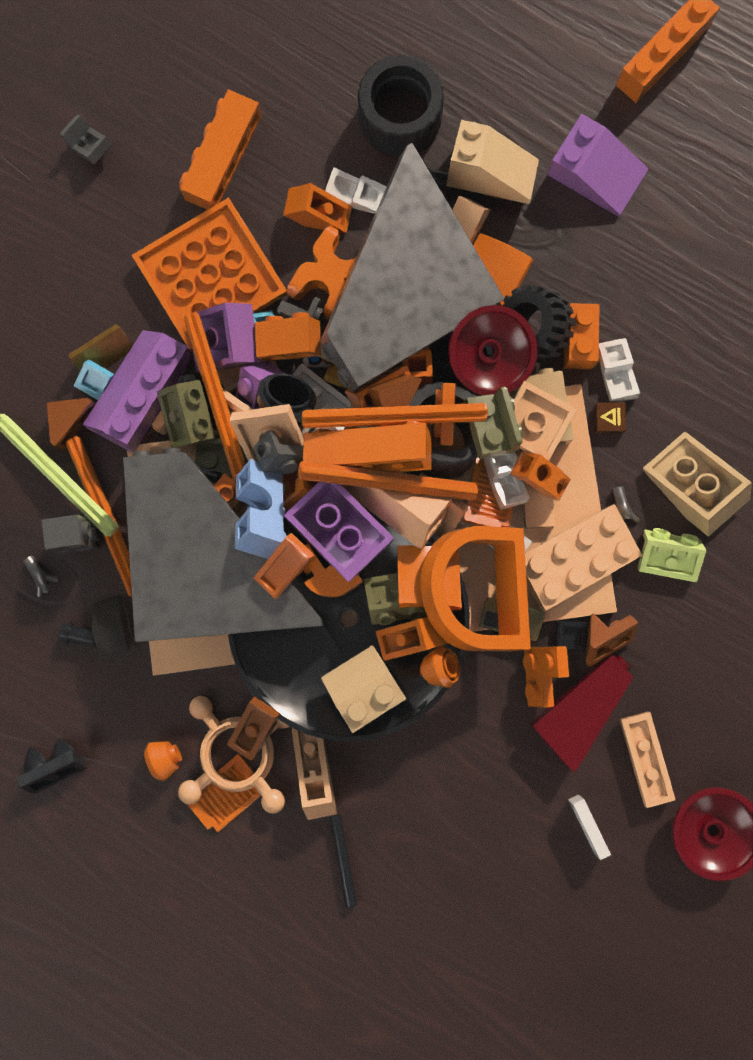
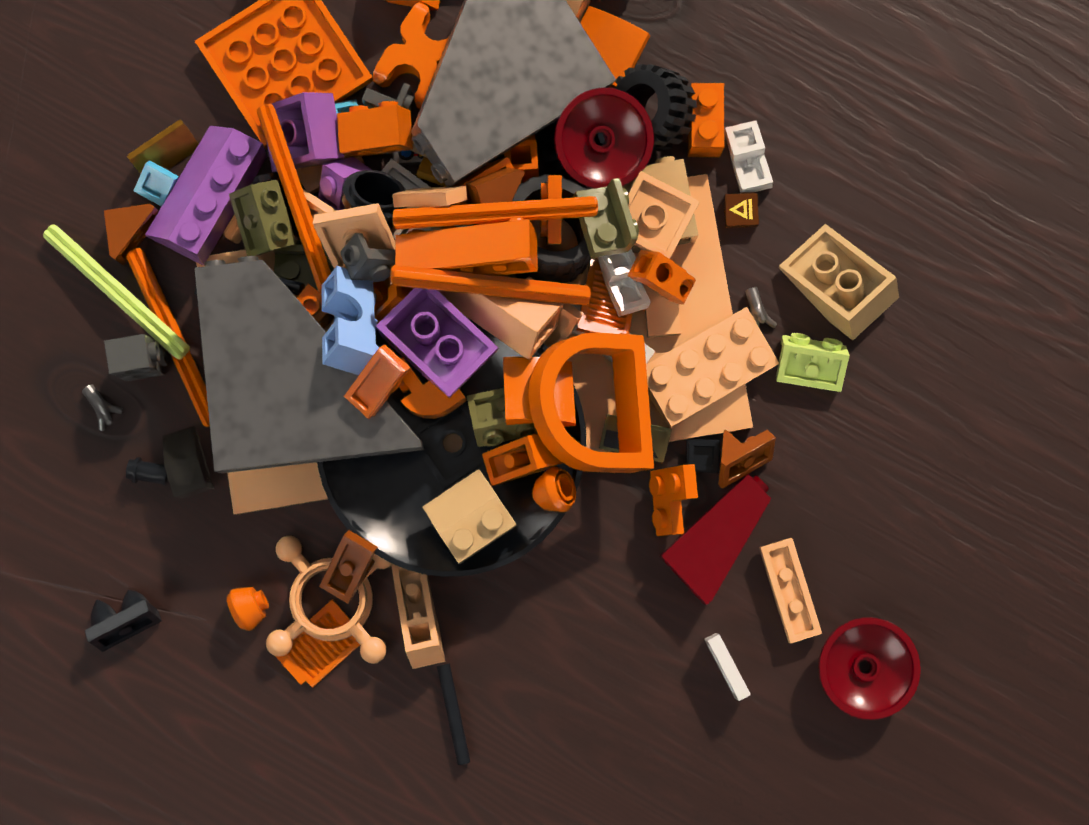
camera: 10 degrees left, 0 degrees up
(335, 399) = (430, 197): none -> light nougat tile

